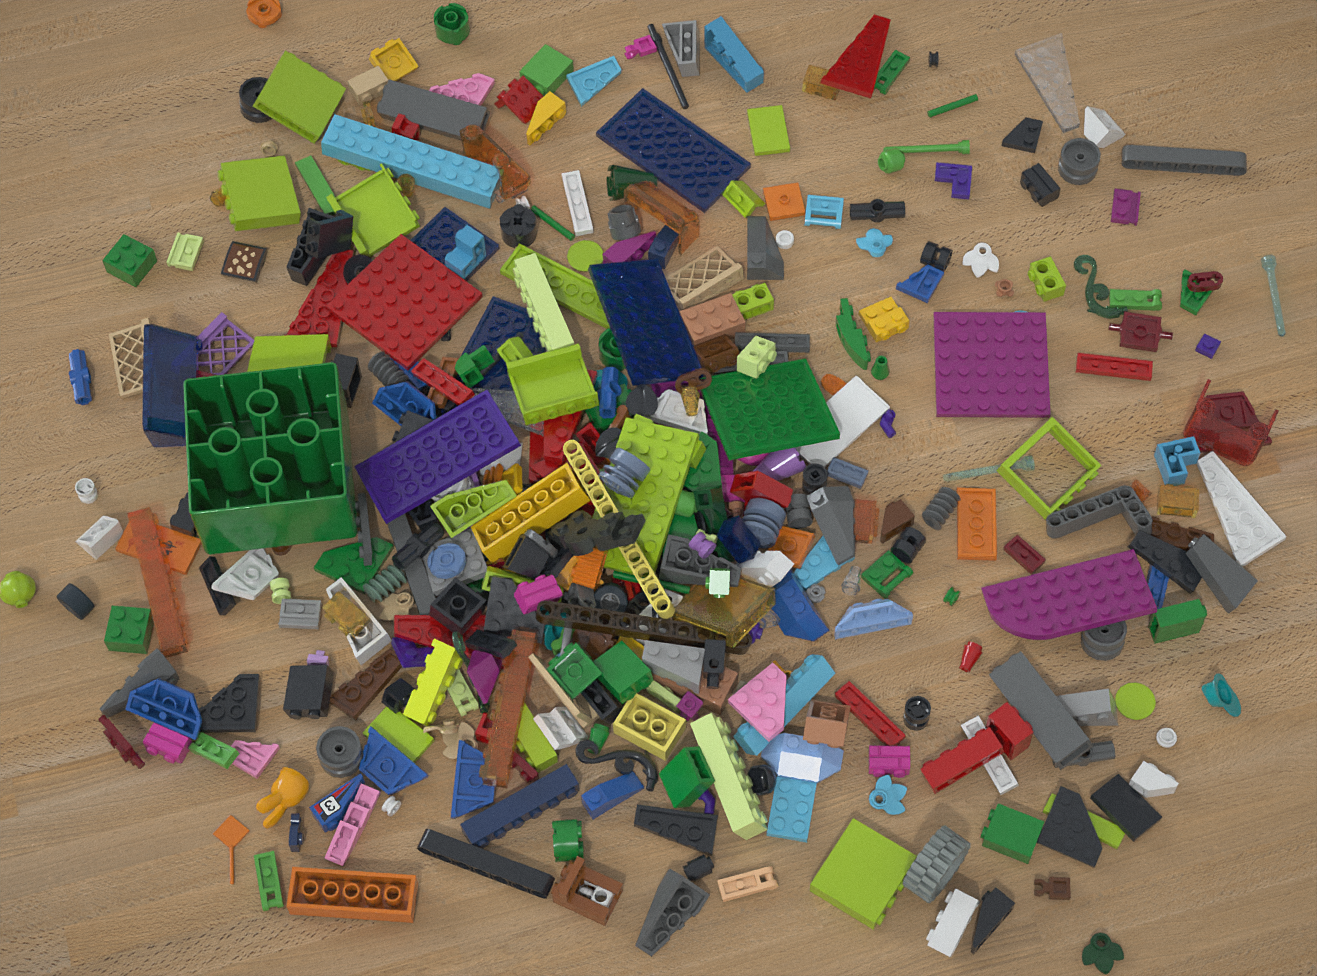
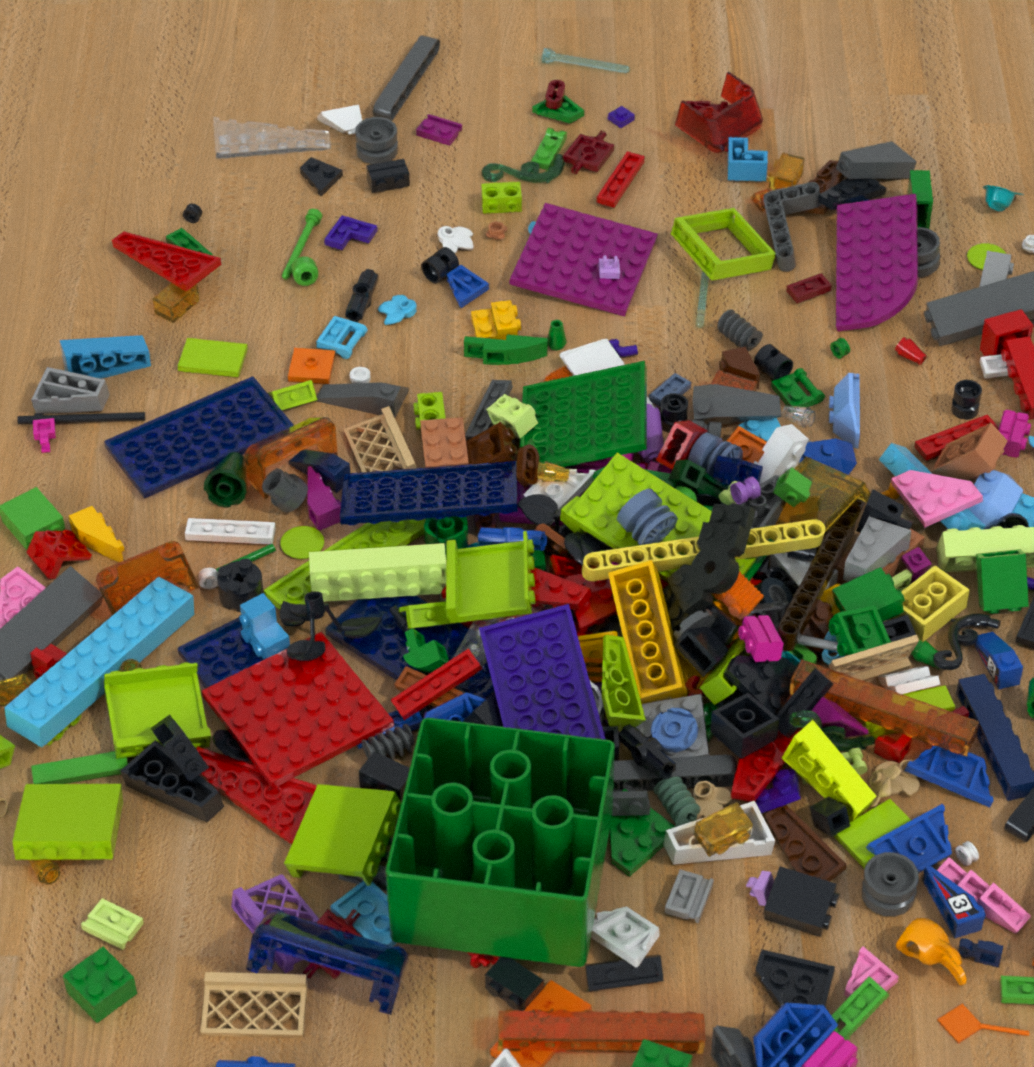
camera: 75 degrees left, 15 degrees down
(244, 261) = (157, 863): slope -> none
(280, 590) = (646, 908): yellowish green wheel -> none
(496, 272) = (314, 608): none -> black plant
(593, 78) = (64, 483): medium azure wing -> none
(956, 104) = (255, 216): green bar -> none
(976, 524) = (764, 314): orange tile -> none
(977, 384) = (609, 268): none -> lavender tile
(1242, 518) = (811, 140): white wing -> none

